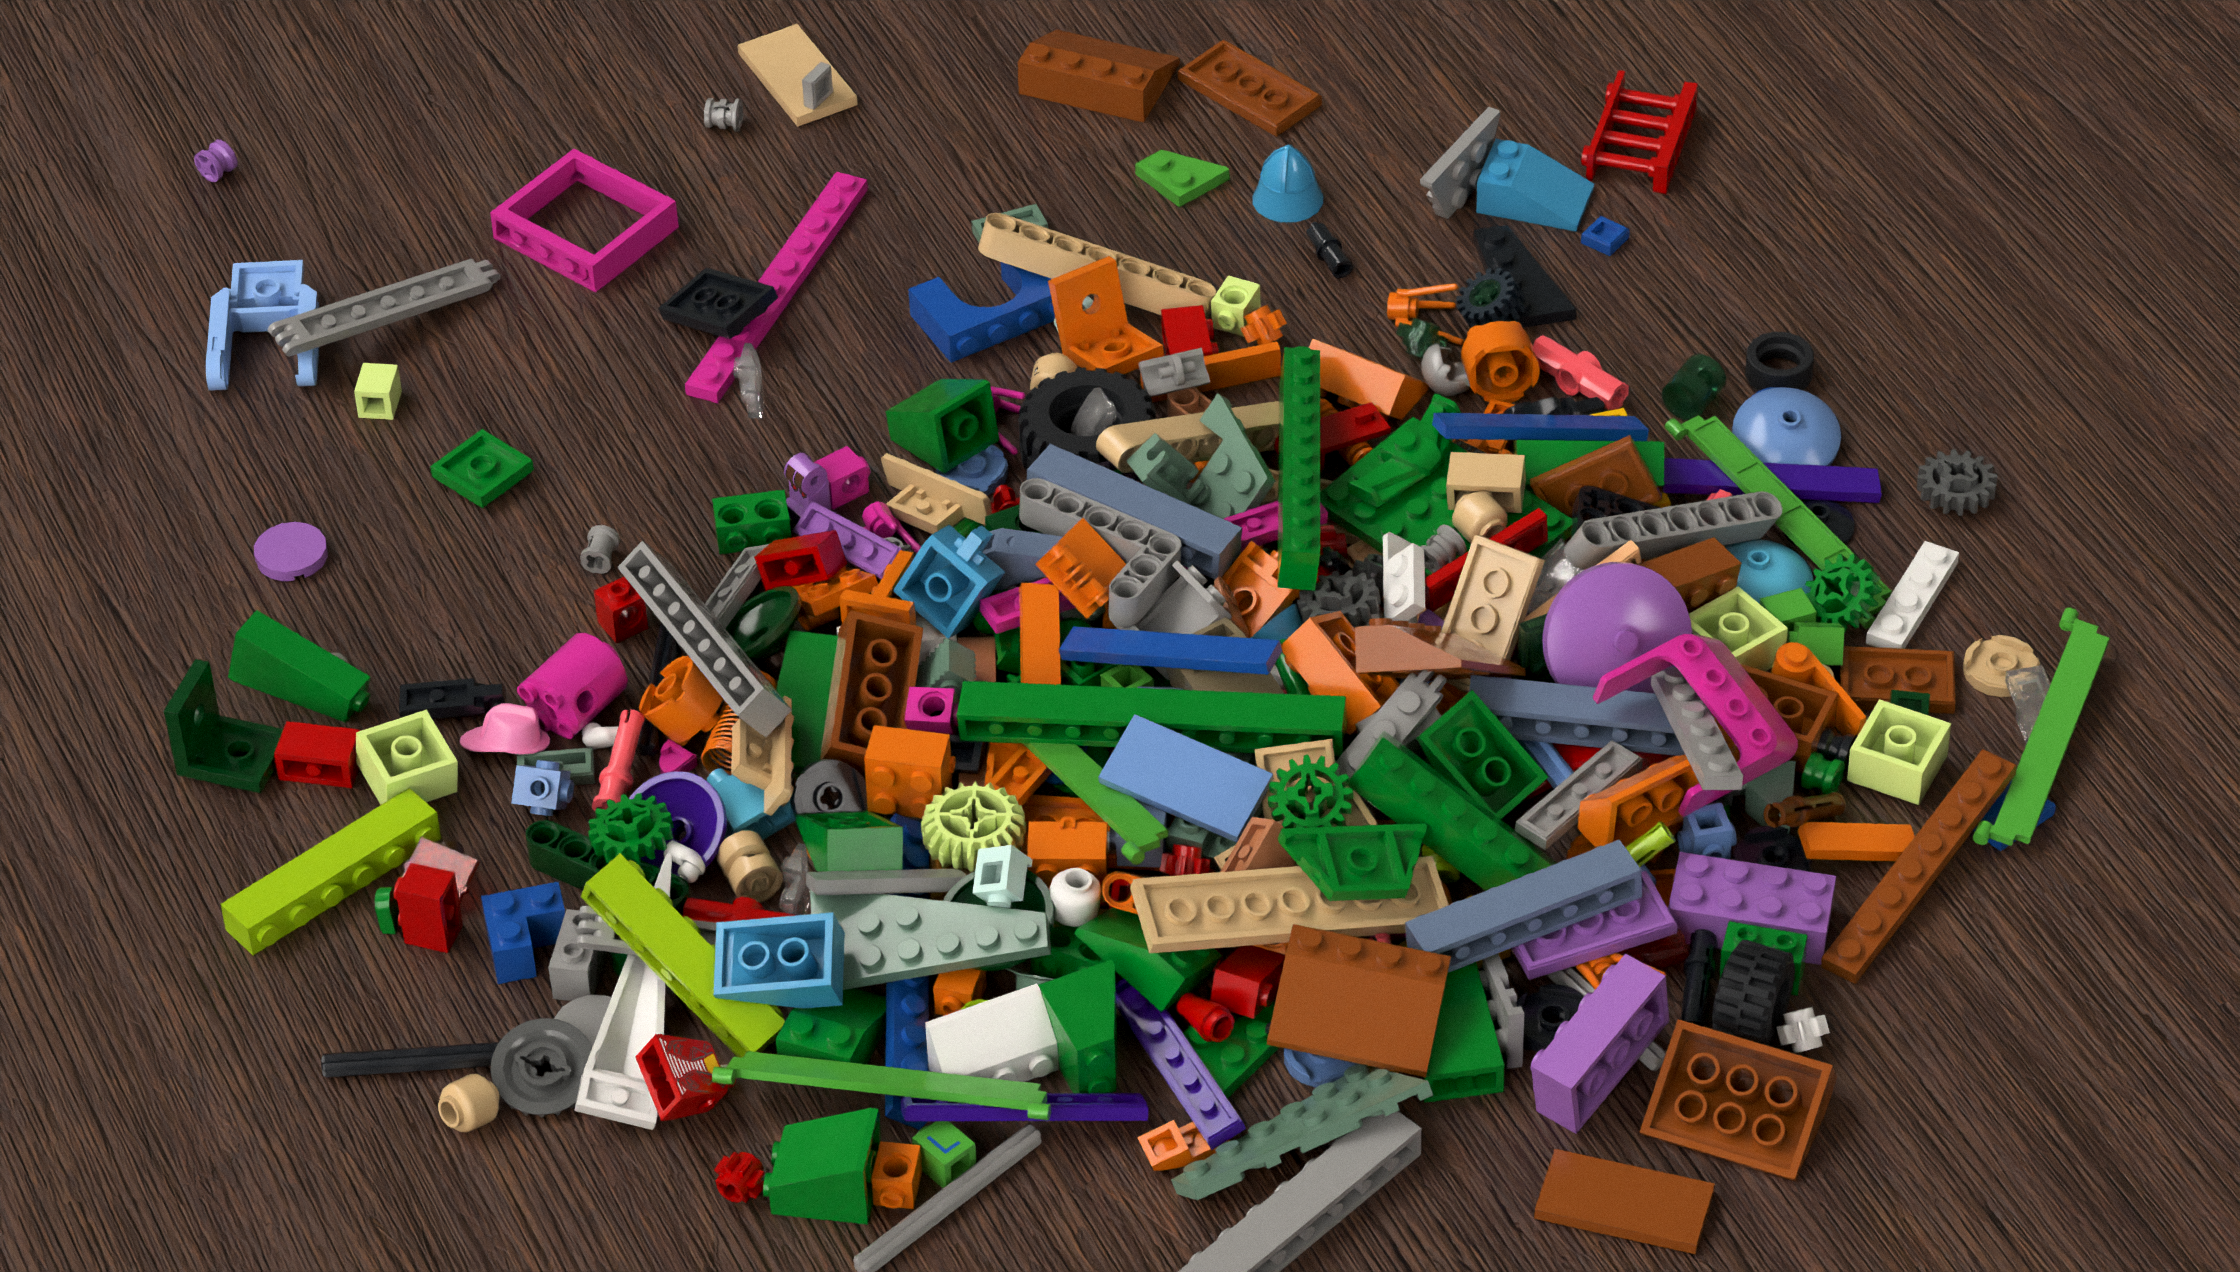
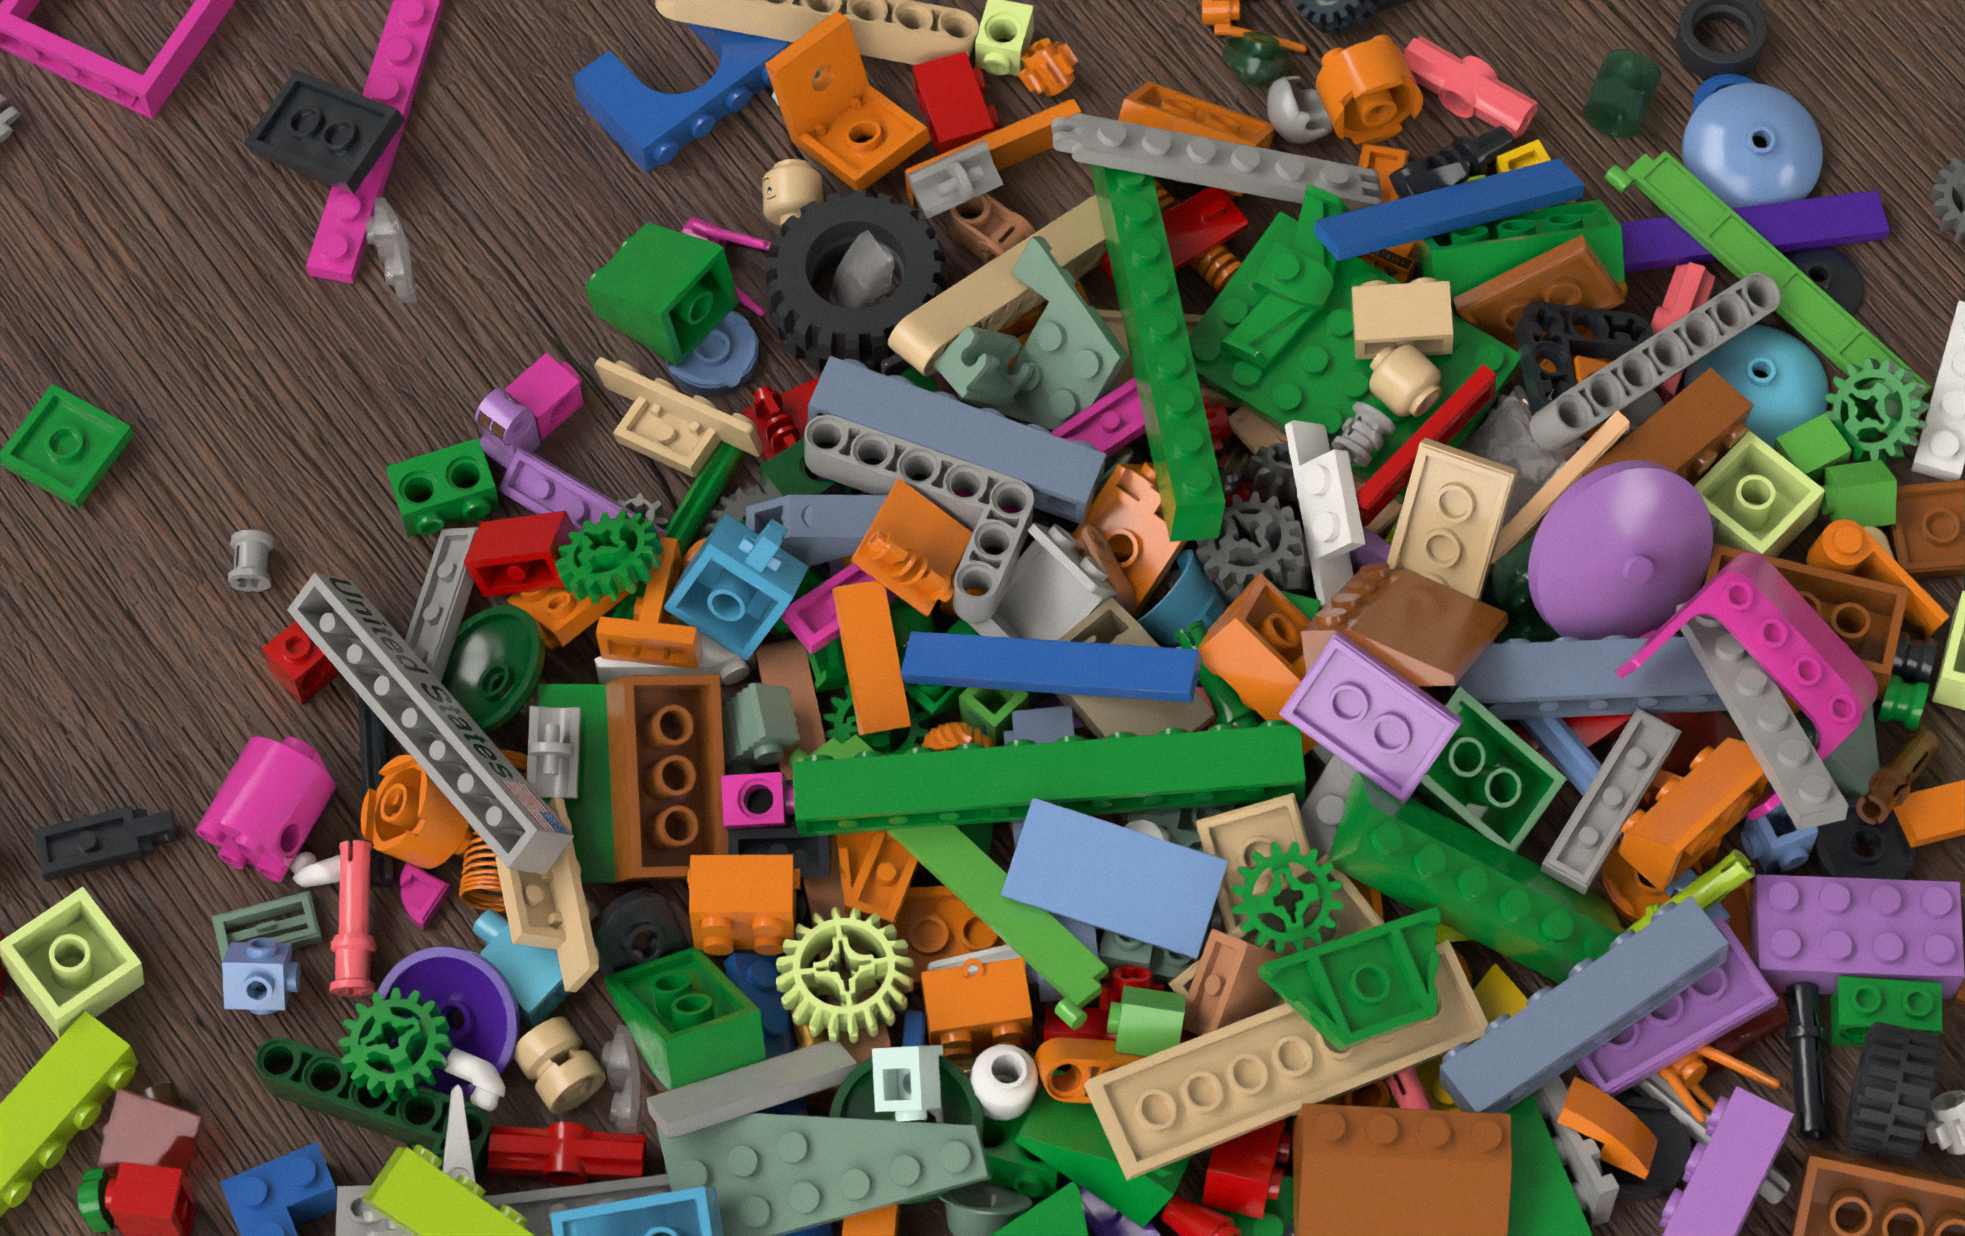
camera: 10 degrees left, 20 degrees up
(508, 730) = (191, 888): bright pink piece -> none
(792, 666) = (554, 751): none -> light grey hips
(860, 555) = (609, 556): none -> green gear
(882, 522) = (616, 465): dark pink plant -> none
(1187, 861) = (1146, 1021): none -> bright green brick
(1351, 370) = (1211, 161): none -> light grey hinge
(1397, 689) = (1371, 717): none -> tile
(1537, 994) = (1623, 1135): none -> orange slope

